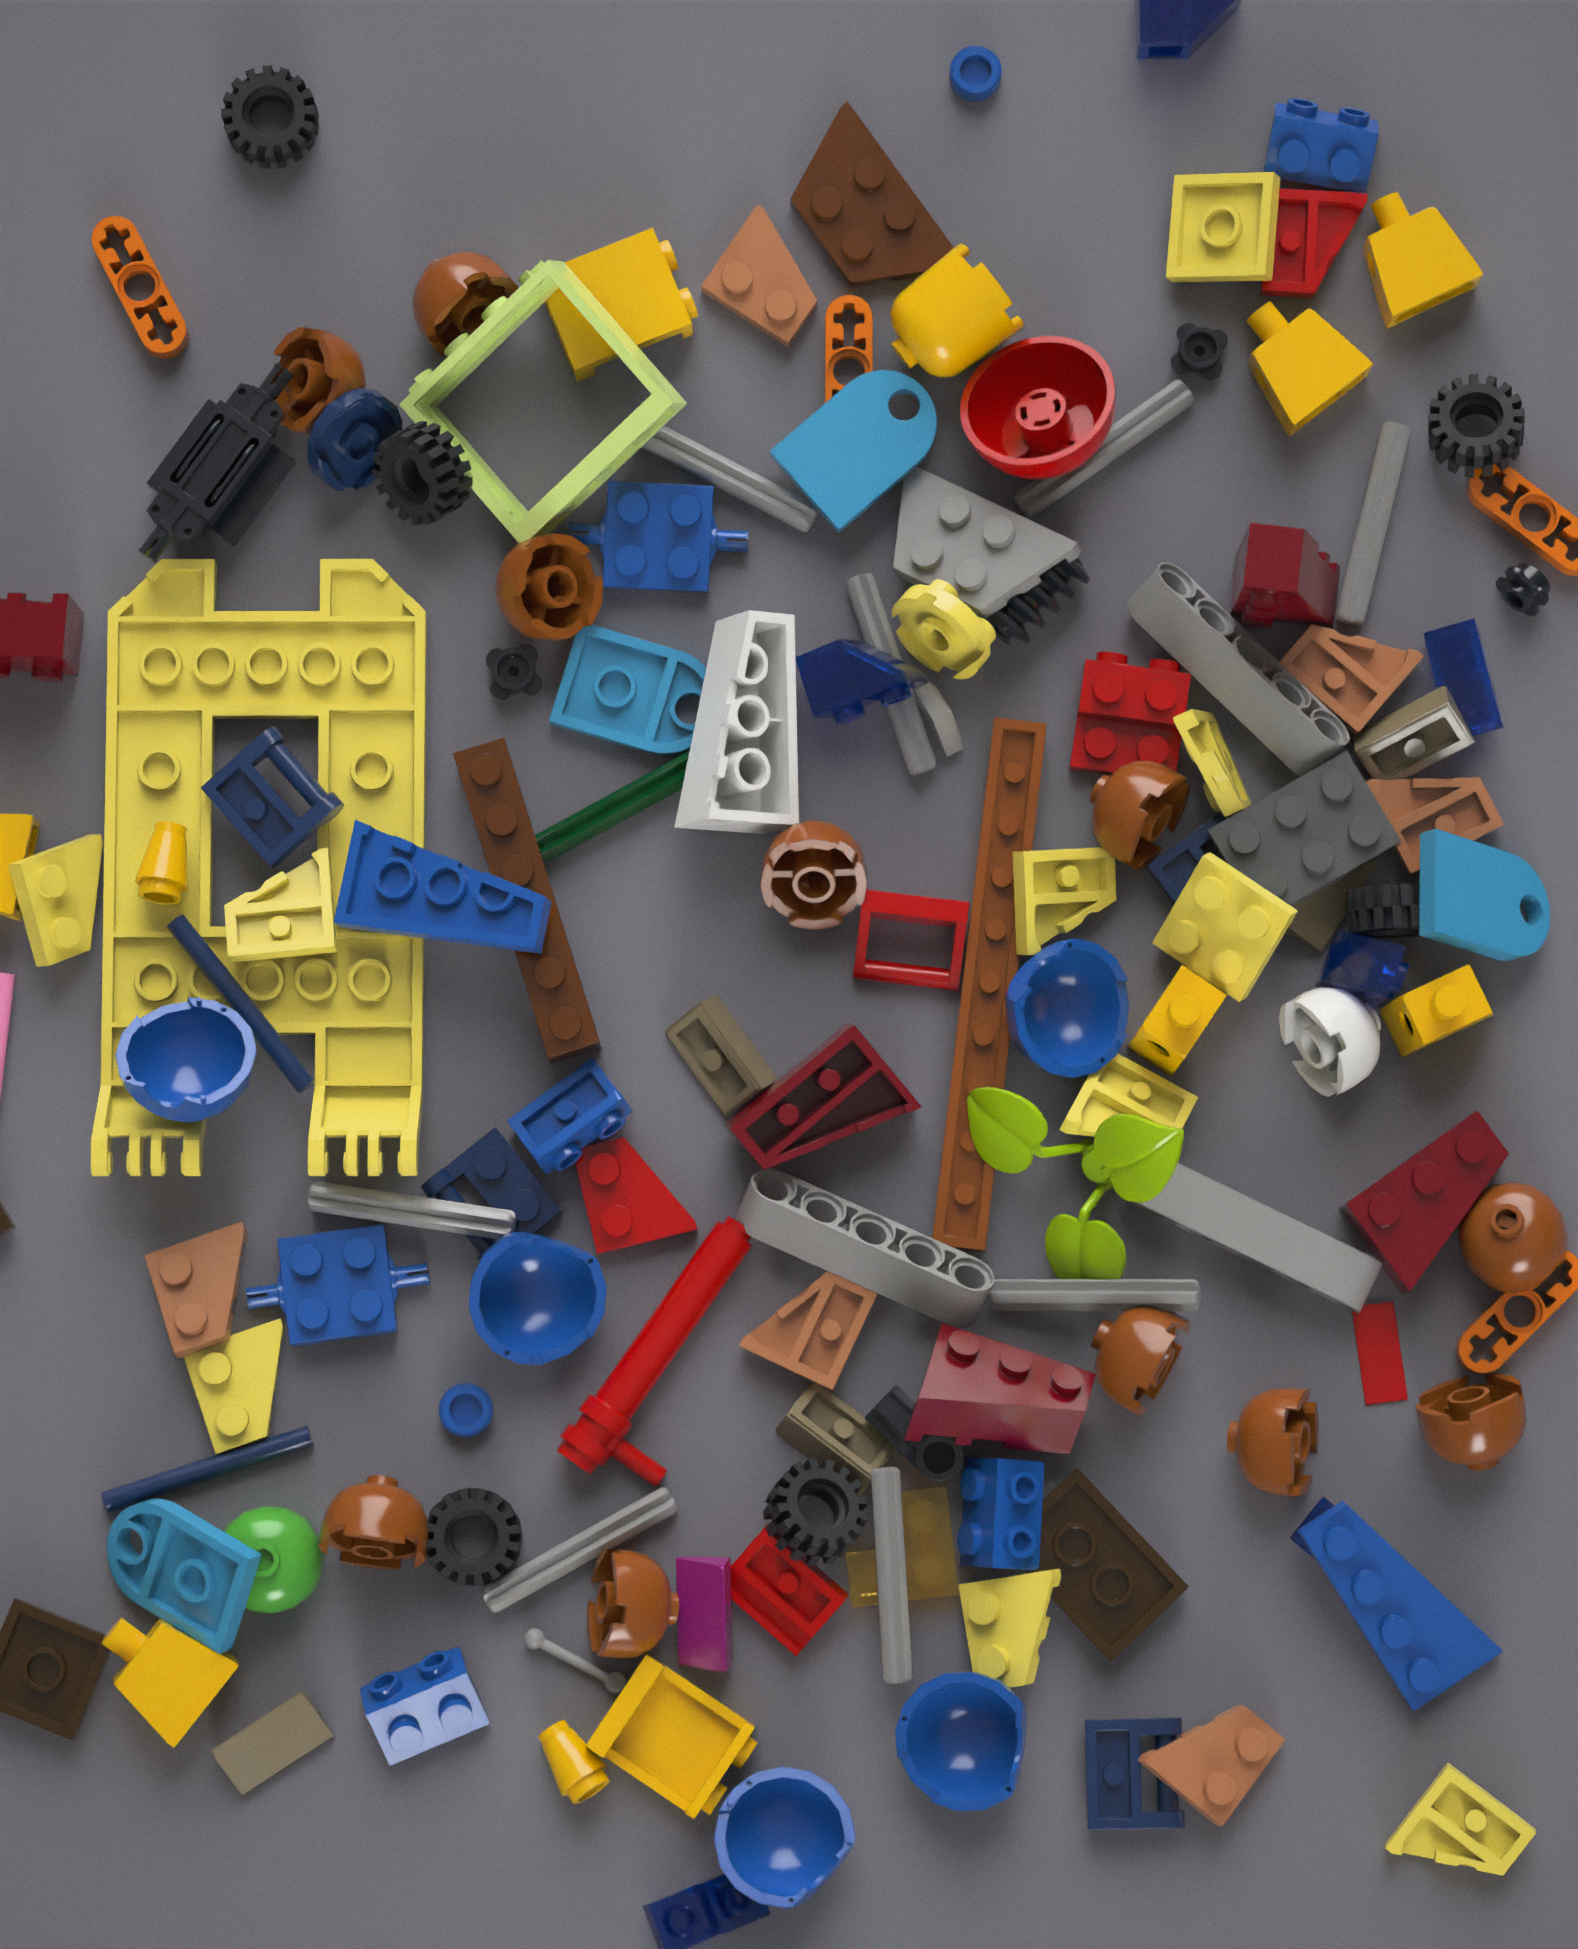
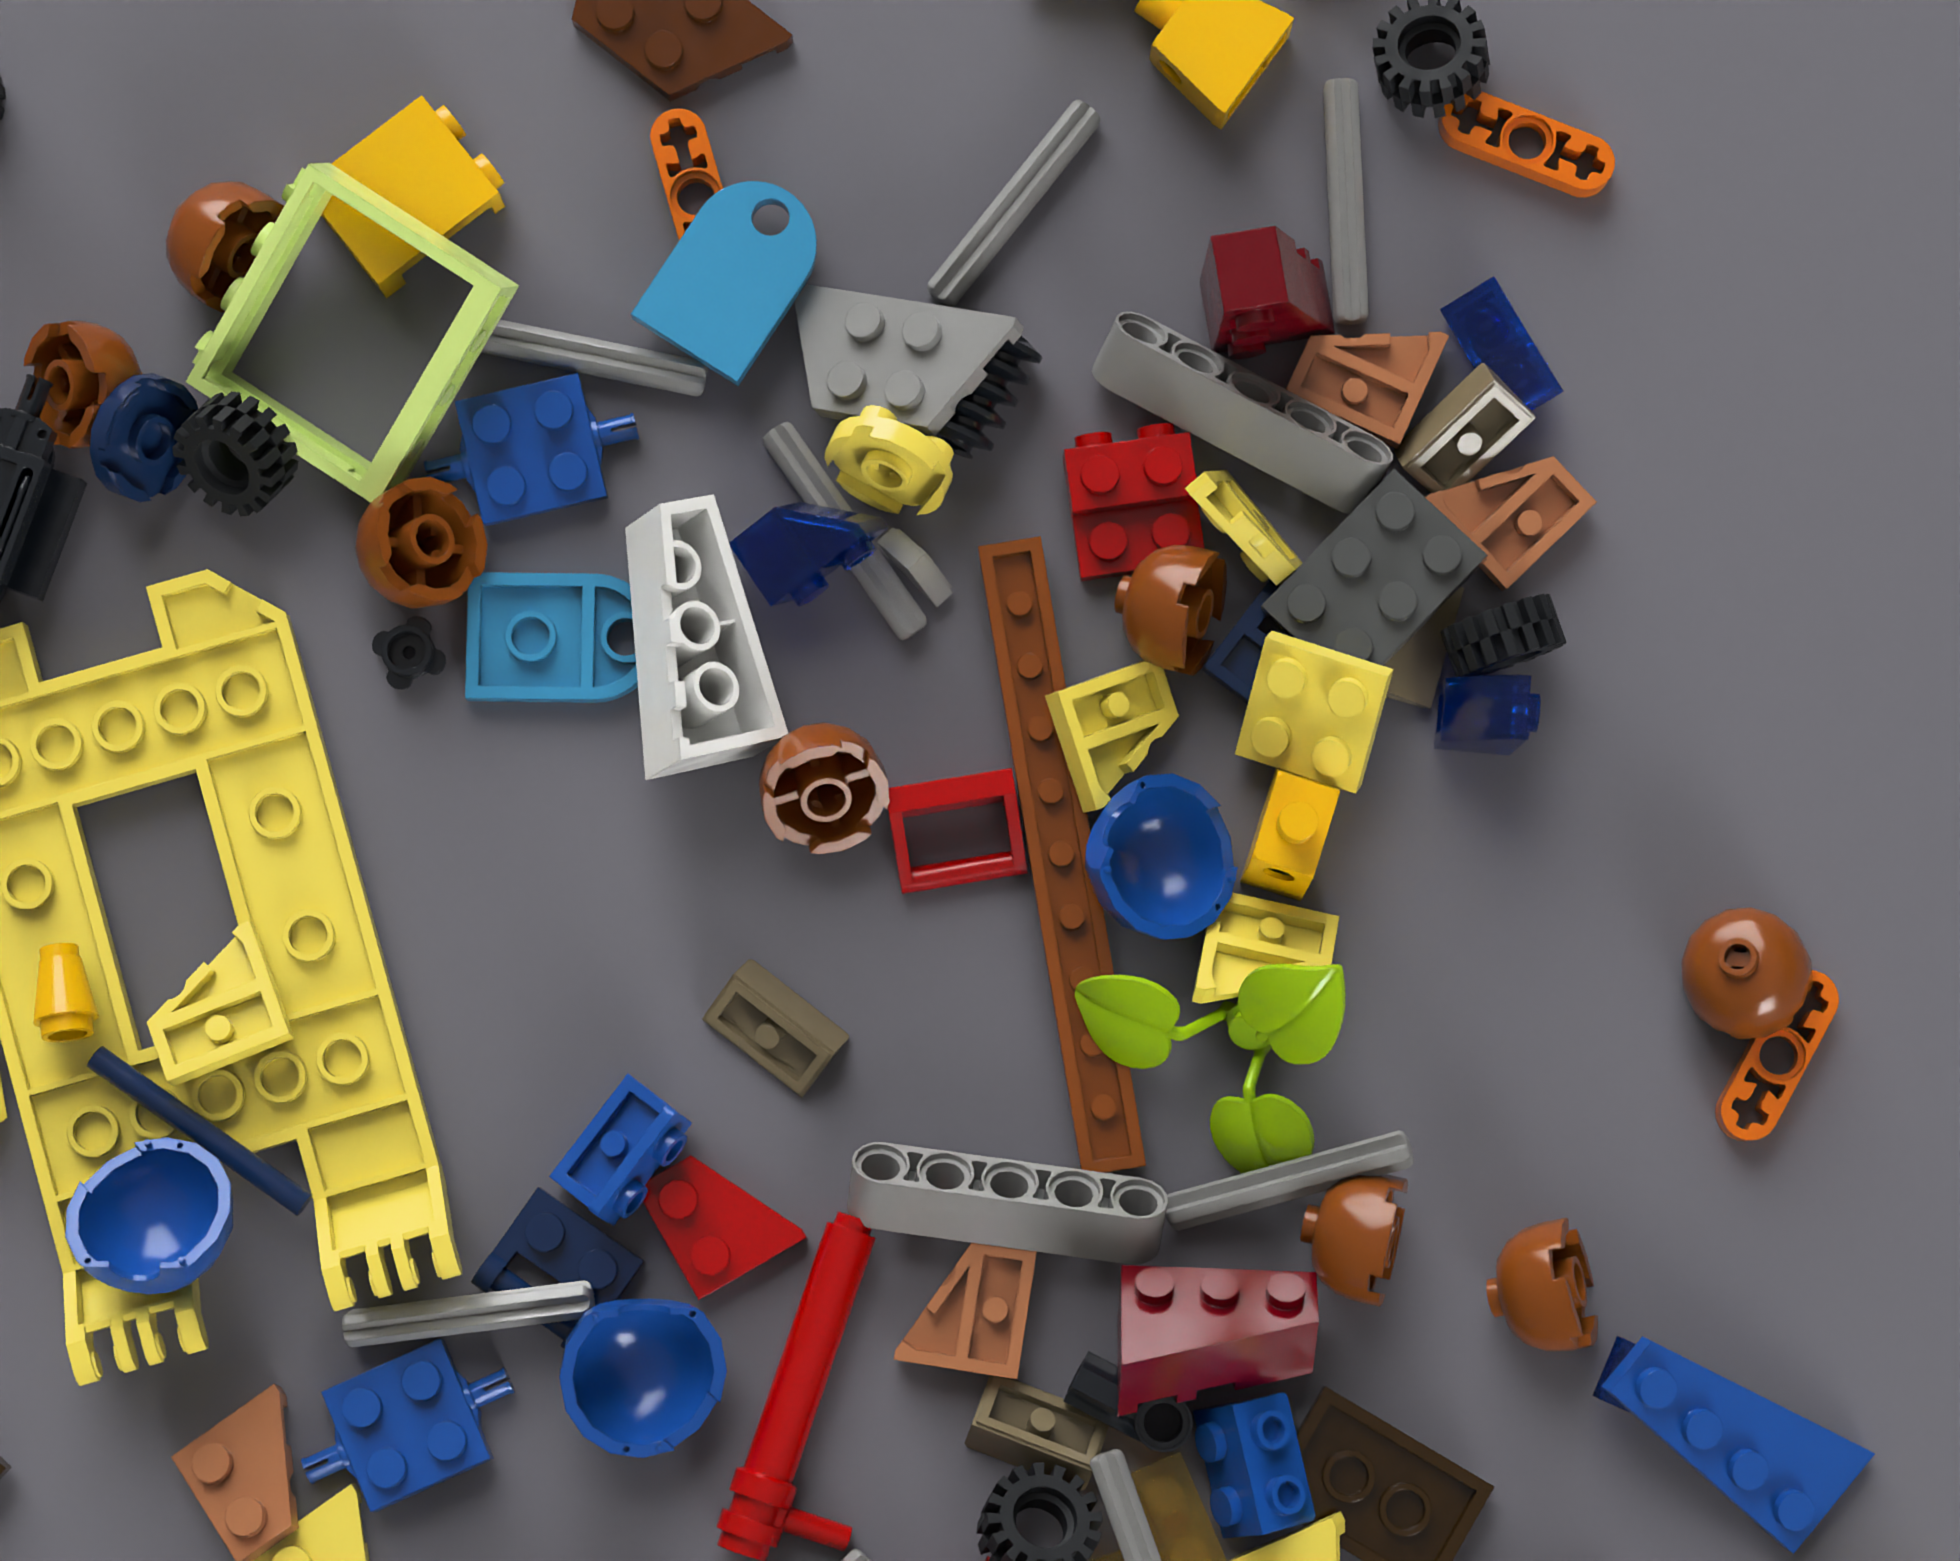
camera: 20 degrees left, 0 degrees up
(256, 806) = (155, 897): dark blue plate -> none
(426, 895) = (374, 943): blue wing -> none
(466, 1410) = (599, 1526): blue tile -> none
(515, 857) = (499, 913): reddish brown arch -> none
(612, 809) = (562, 785): dark green axle -> none
(762, 281) = (566, 122): nougat wing -> none
(820, 1100) = (907, 1047): dark red wedge -> none
(951, 316) = (796, 99): yellow cylinder -> none
(1039, 407) = (927, 174): red piece -> none
(1192, 337) = (1099, 45): black plate -> none
(1265, 1238) = (1468, 1056): light grey beam -> none
(1334, 1036) = (1475, 802): white cylinder -> none
(1379, 1353) = (1631, 1149): red sticker -> none
(1425, 1198) = (1633, 957): dark red wedge -> none
(1436, 1010) = (1583, 738): yellow torso -> none
(1473, 1422) = (1764, 1199): dark orange cylinder -> none
(1475, 898) = (1590, 594): dark azure tile -> none
(1524, 588) = (1540, 226): black plate -> none

